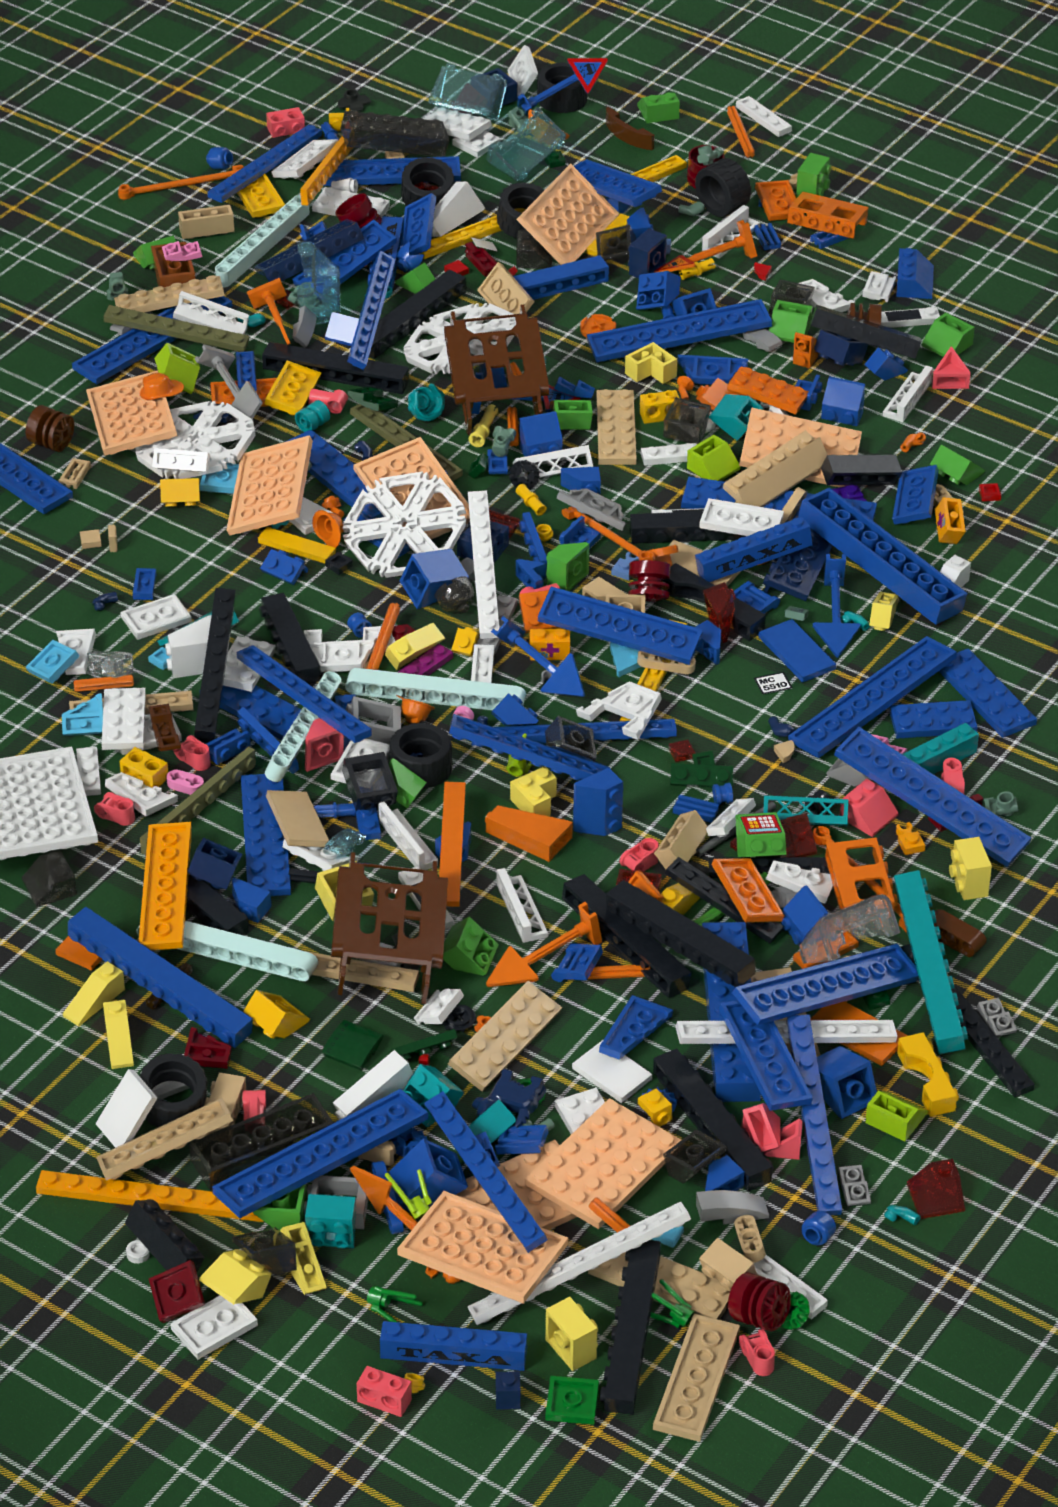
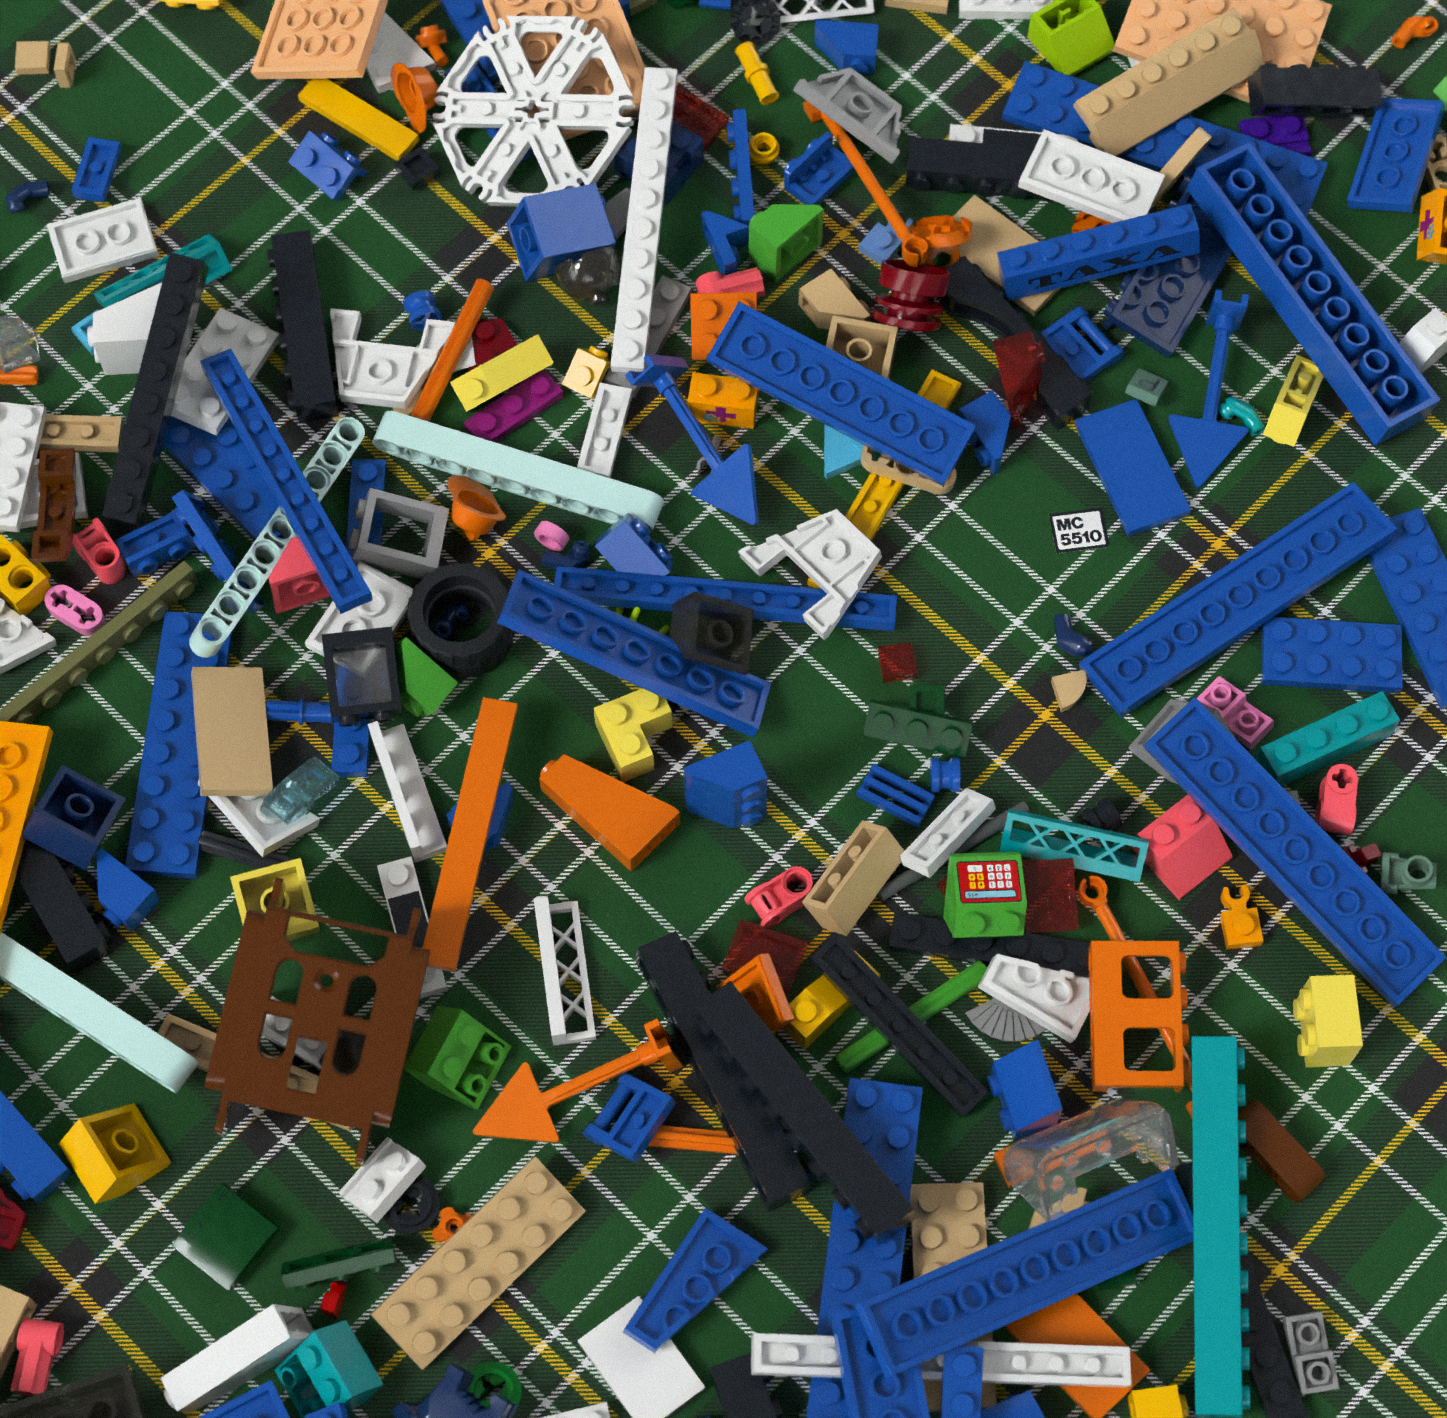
camera: 10 degrees right, 25 degrees up
(748, 890) = (941, 1012): orange tile -> none

